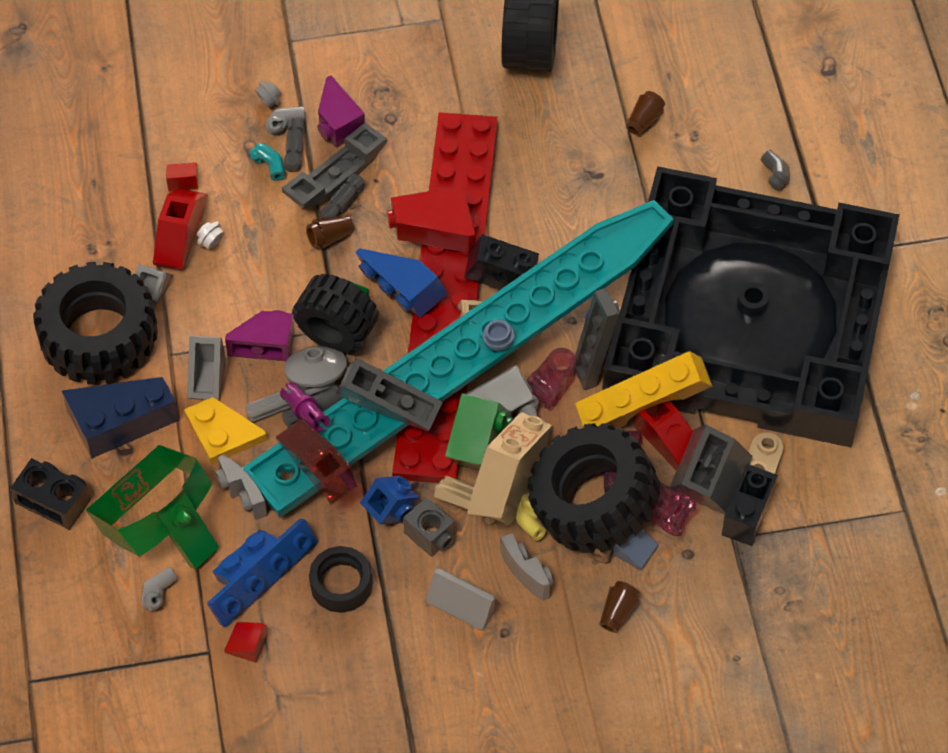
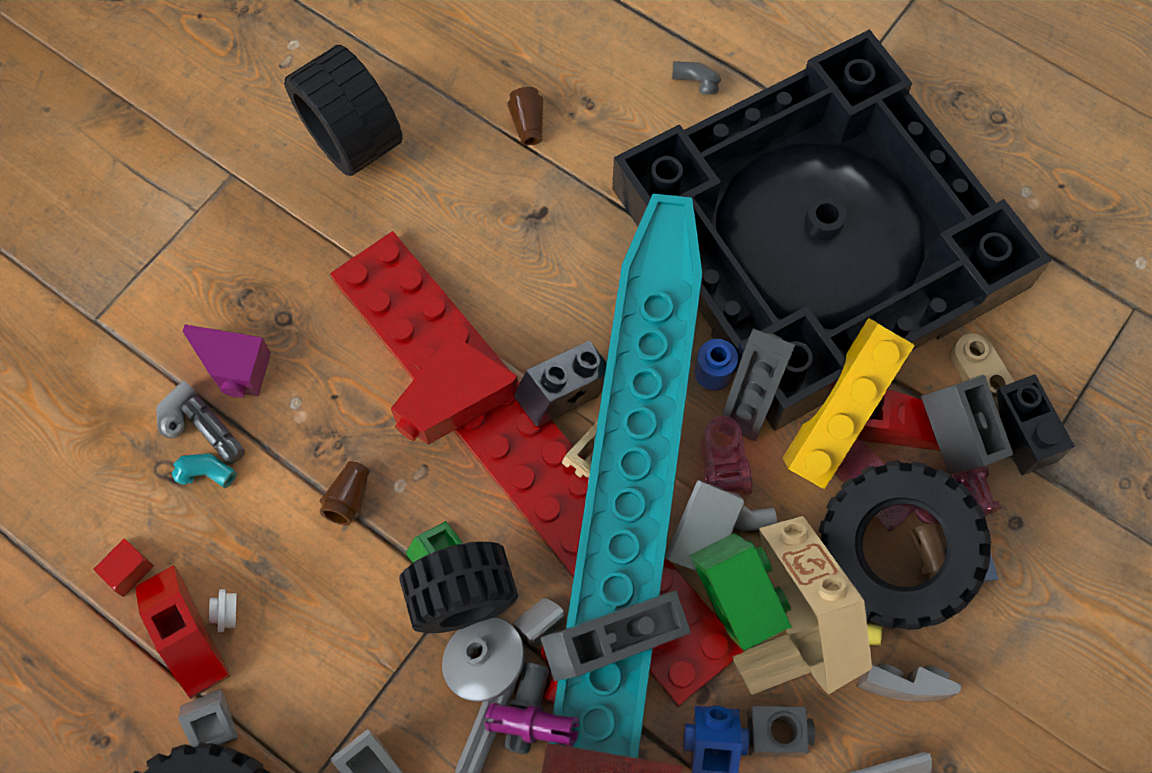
camera: 45 degrees left, 10 degrees up
(263, 336) = (397, 675): magenta slope -> none
(268, 94) = (131, 397): light grey plate -> none
(326, 180) = (287, 421): dark grey slope -> none
(343, 197) = (322, 446): dark grey axle -> none
(405, 278) = (488, 481): blue slope -> none
(498, 335) = (655, 466): sand blue plate -> none
(619, 604) = (1028, 641): reddish brown cone -> none

